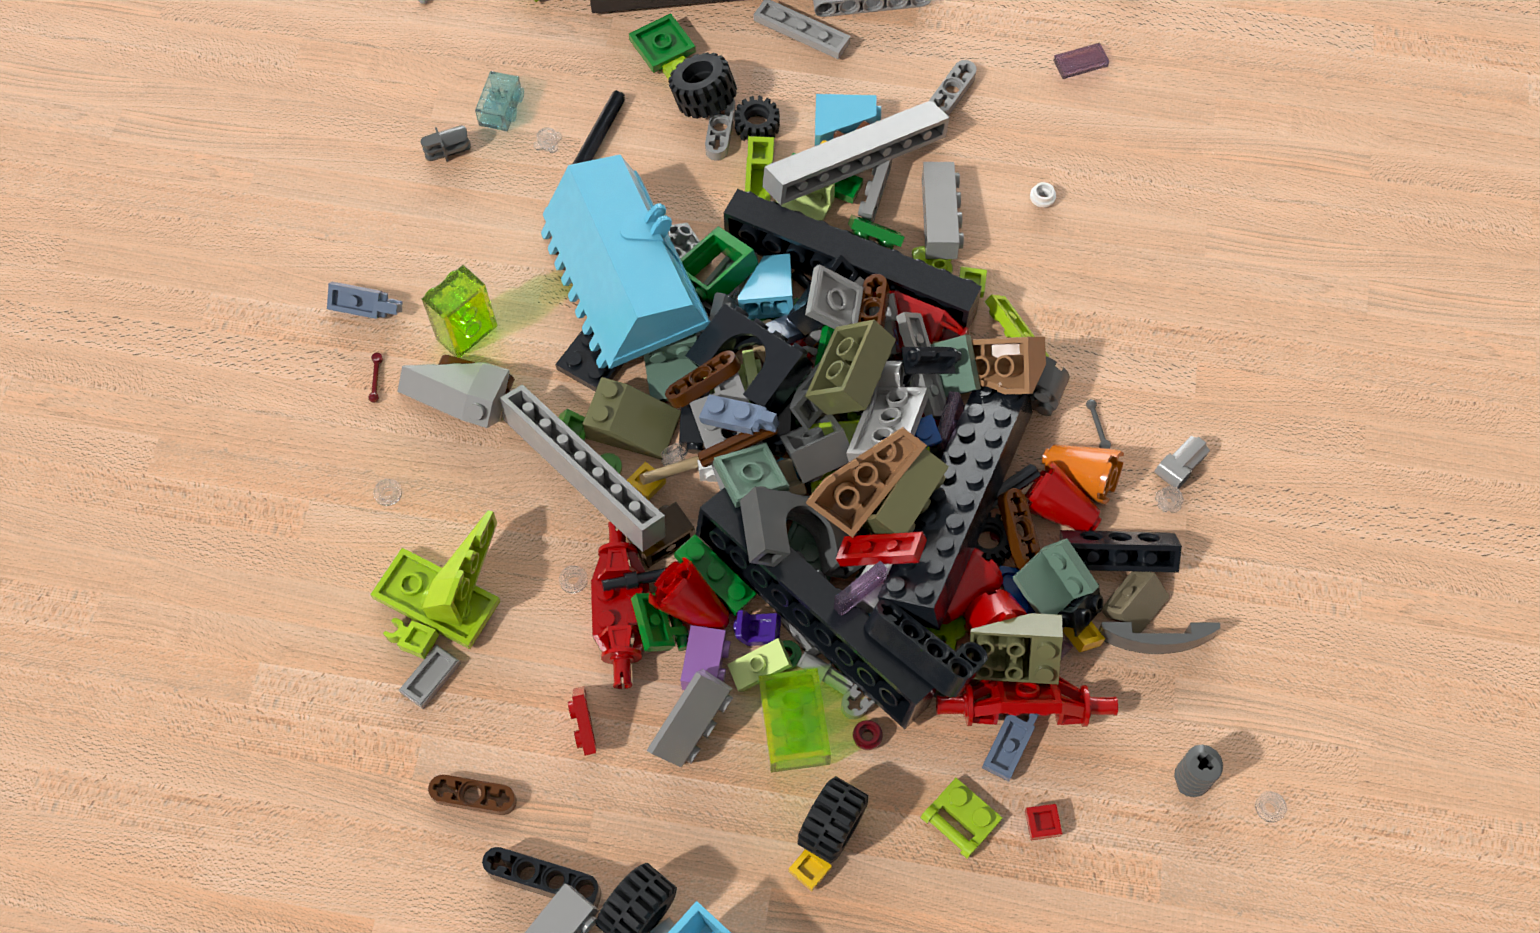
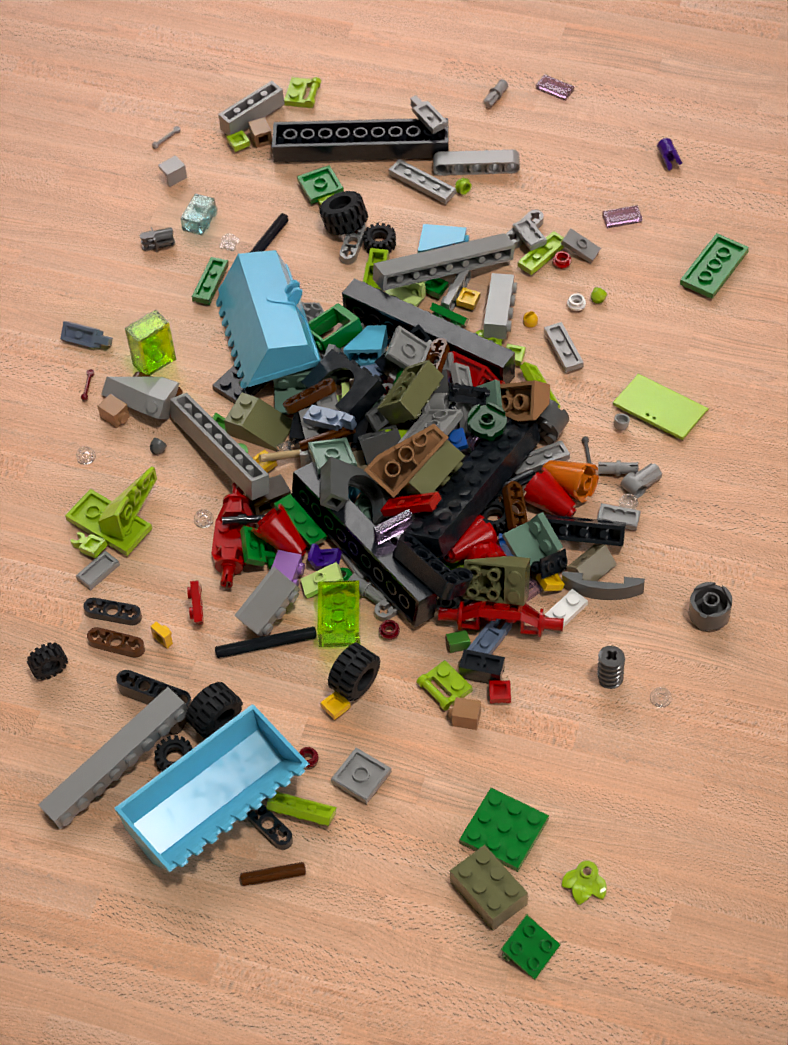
camera: 10 degrees right, 10 degrees down
(375, 843) = (47, 661): none -> black tyre
(419, 418) = (113, 411): none -> medium nougat brick
(437, 748) = (119, 617): none -> black beam
(454, 36) = (174, 170): none -> light grey panel
(490, 468) = (157, 446): none -> dark grey hinge
(529, 201) = (210, 280): none -> green plate
(539, 776) = (162, 634): none -> yellow plate
(691, 772) = (265, 642): none -> black axle
(858, 31) = (463, 186): none -> lime plate
(894, 201) = (468, 298): none -> yellow plate
(961, 415) = (484, 430): none -> dark green plate
(964, 97) = (529, 233): none -> light grey plate
(969, 742) = (458, 641): none -> bright green slope
(984, 124) = (538, 257): none -> lime plate
(986, 228) = (530, 319): none -> yellow hinge
(1000, 864) = (465, 713): none -> medium nougat brick
(1013, 786) = (481, 666): none -> black hinge
(1014, 127) = (562, 259): none -> red plate
(1035, 109) = (580, 245): none -> light grey plate
(1038, 265) = (563, 347): none -> light grey plate
(1042, 435) = (538, 457): none -> light grey plate
(1071, 182) = (598, 295): none -> lime hinge
(1113, 673) = (568, 607): none -> white plate
(1138, 373) = (621, 421): none -> light grey hinge
(1147, 445) = (618, 467): none -> light grey pin
(1161, 520) = (620, 514): none -> light grey plate
(1202, 349) = (660, 406): none -> lime container
(1219, 125) = (714, 265): none -> plate
(1316, 672) = (710, 606): none -> dark grey brick

